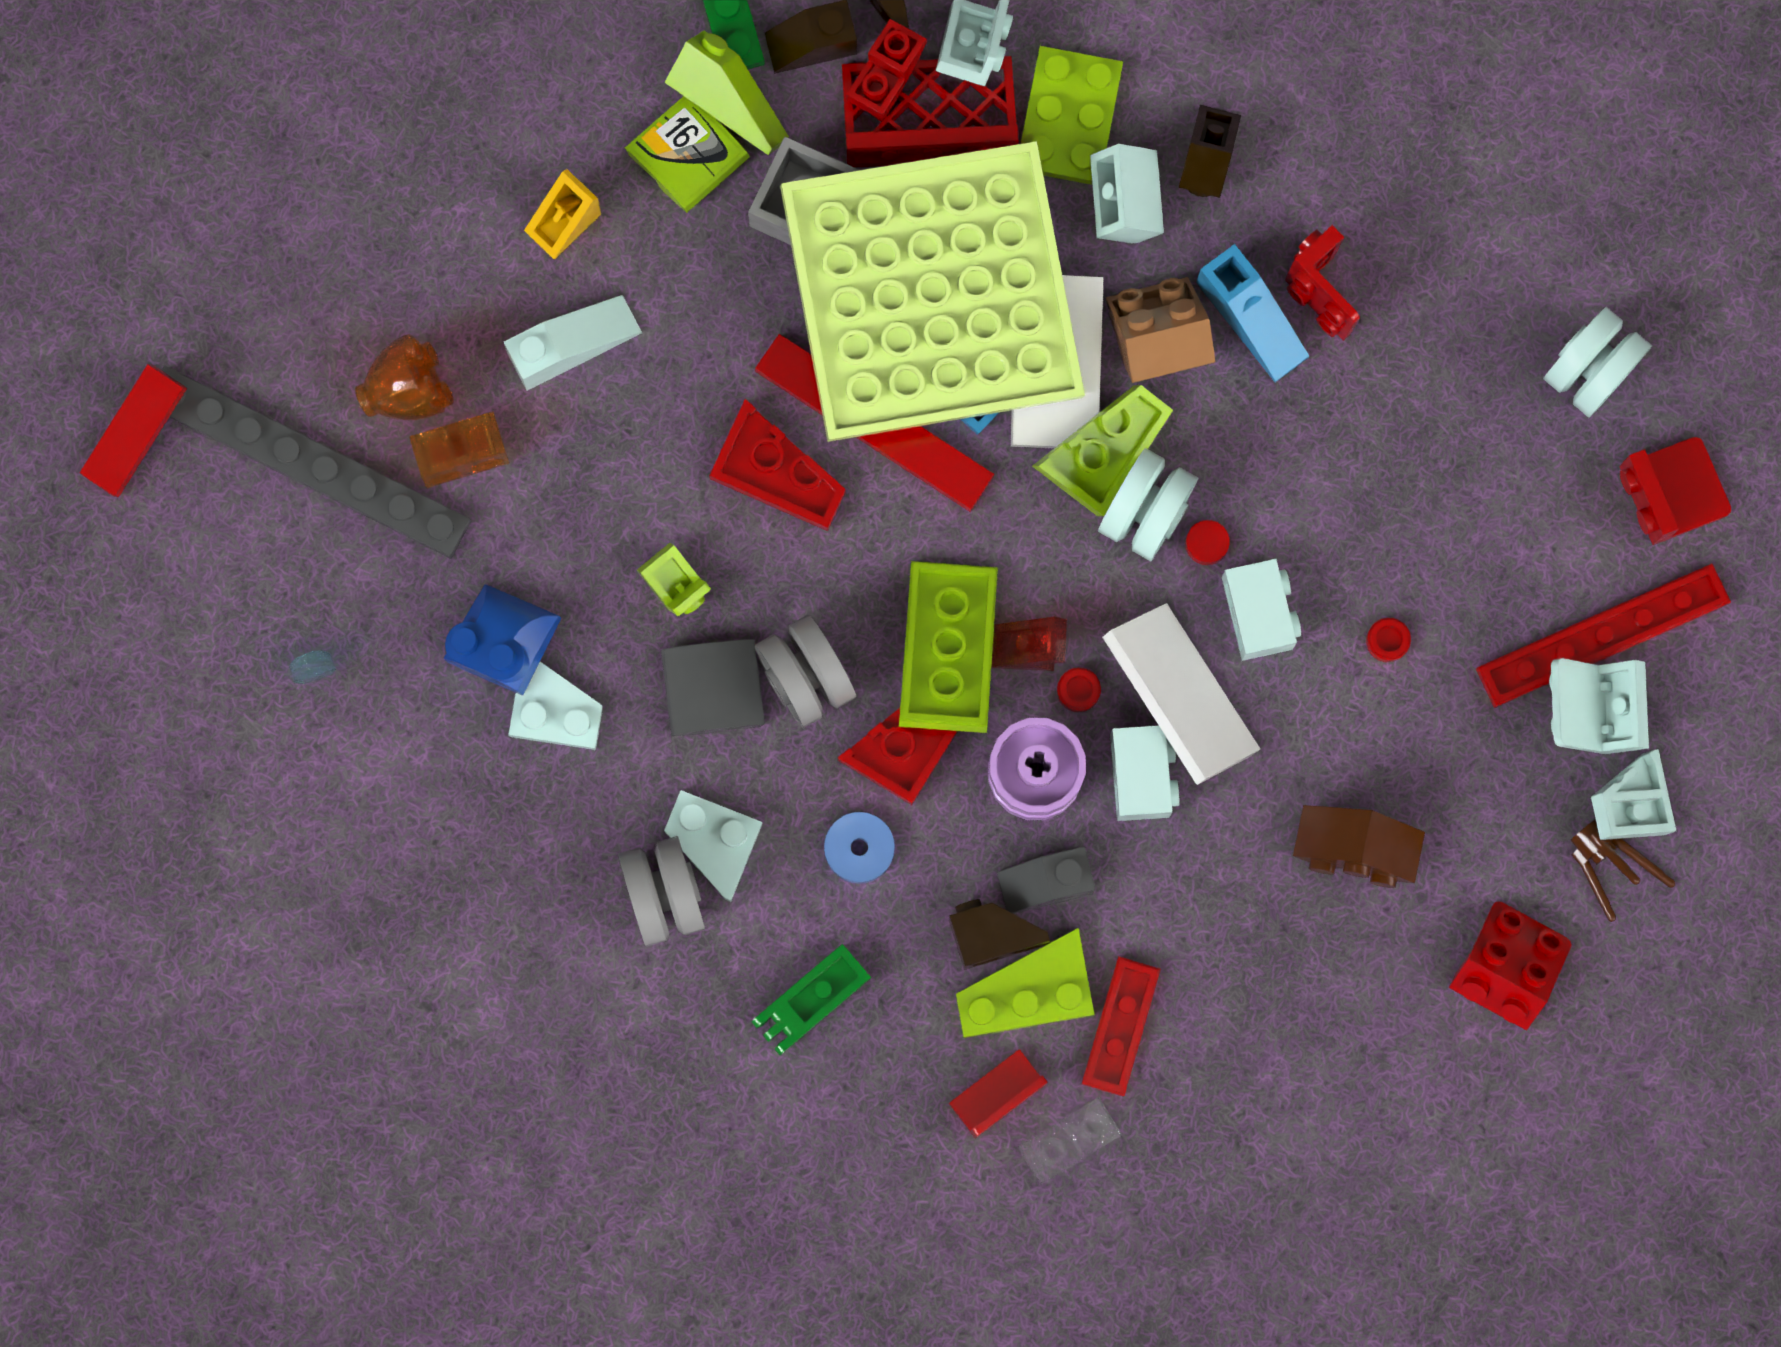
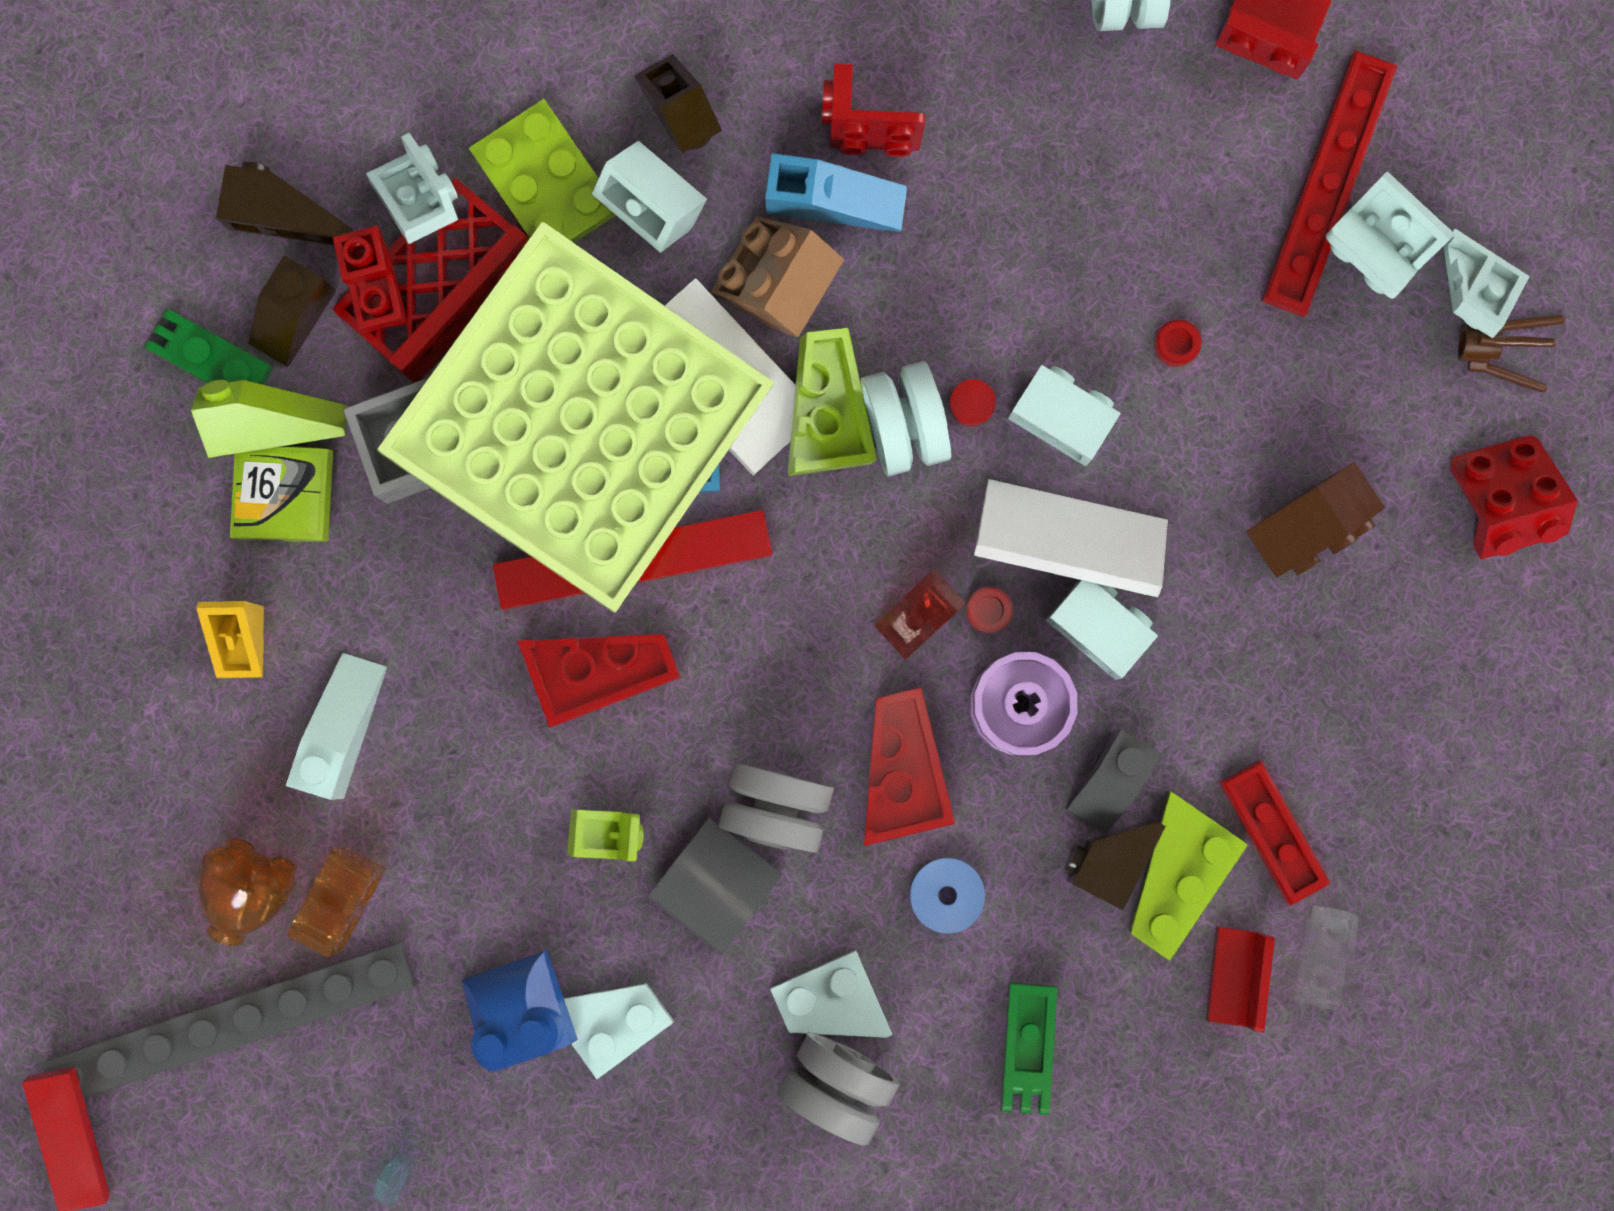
camera: 40 degrees left, 5 degrees up
(948, 647) = (863, 677): lime tile -> none

